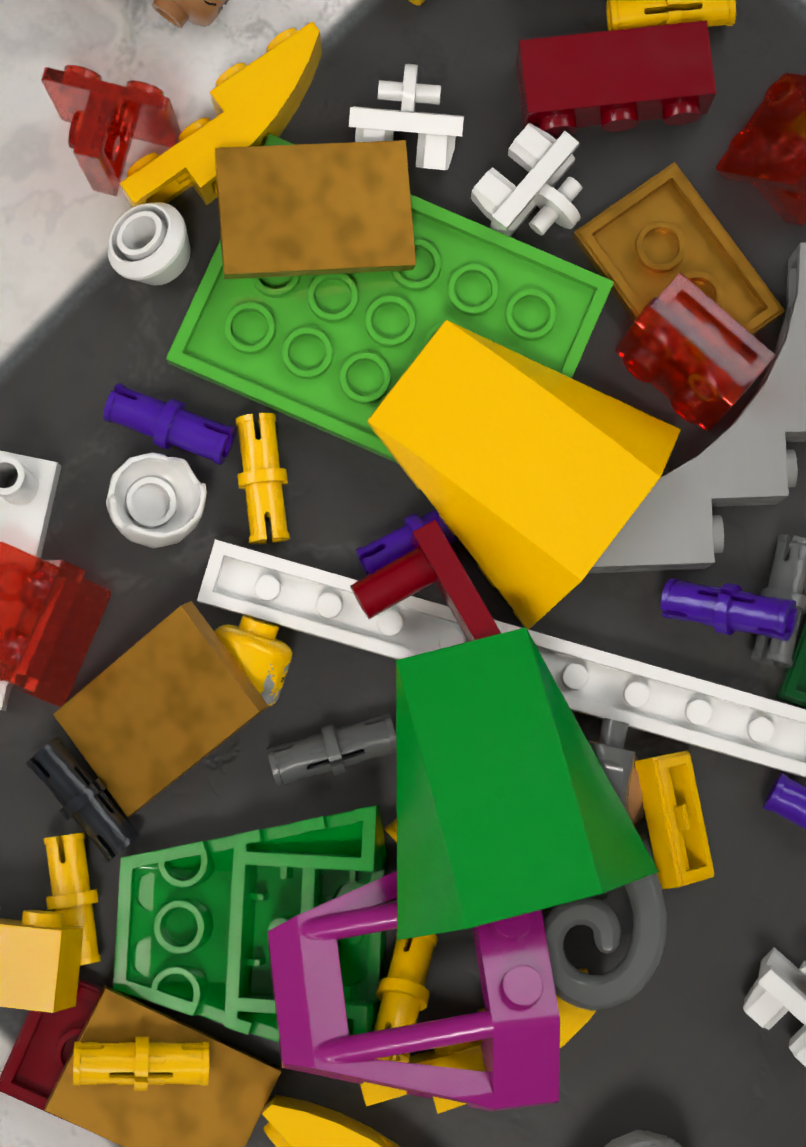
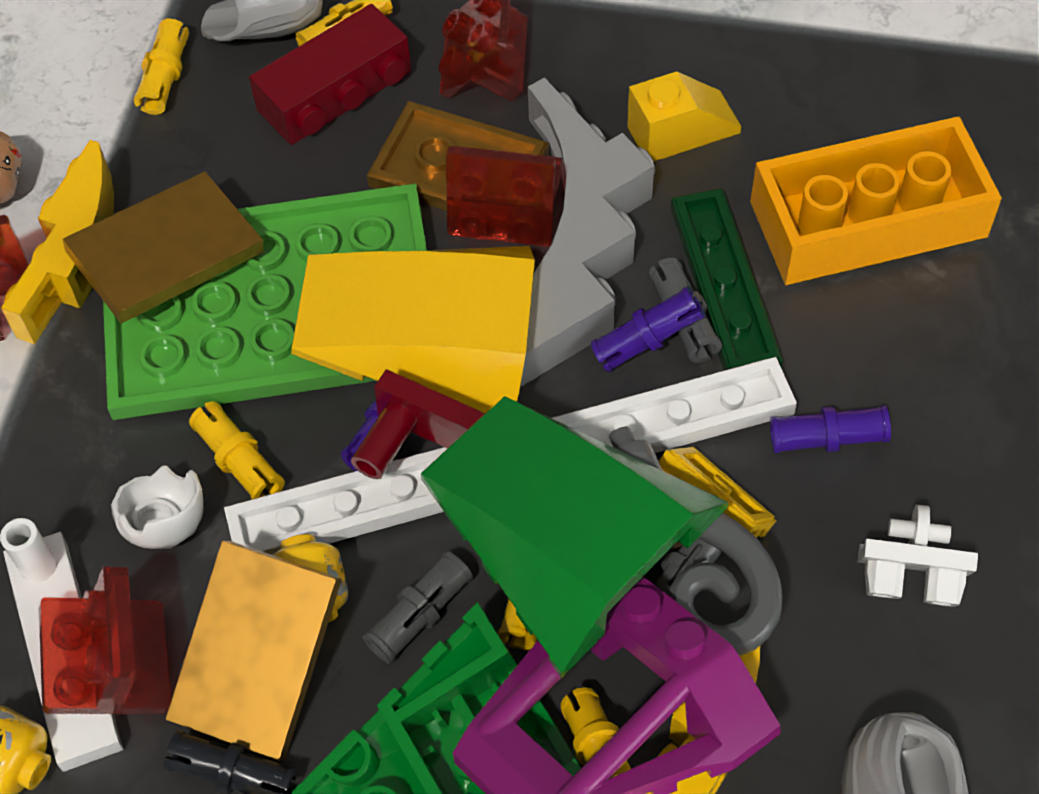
camera: 30 degrees left, 25 degrees down
(149, 244) = (50, 341): white cone -> none
(169, 423) = (137, 455): dark purple pin -> none
(434, 130) = (222, 163): white hips -> none
(546, 163) = (322, 160): white hips -> none

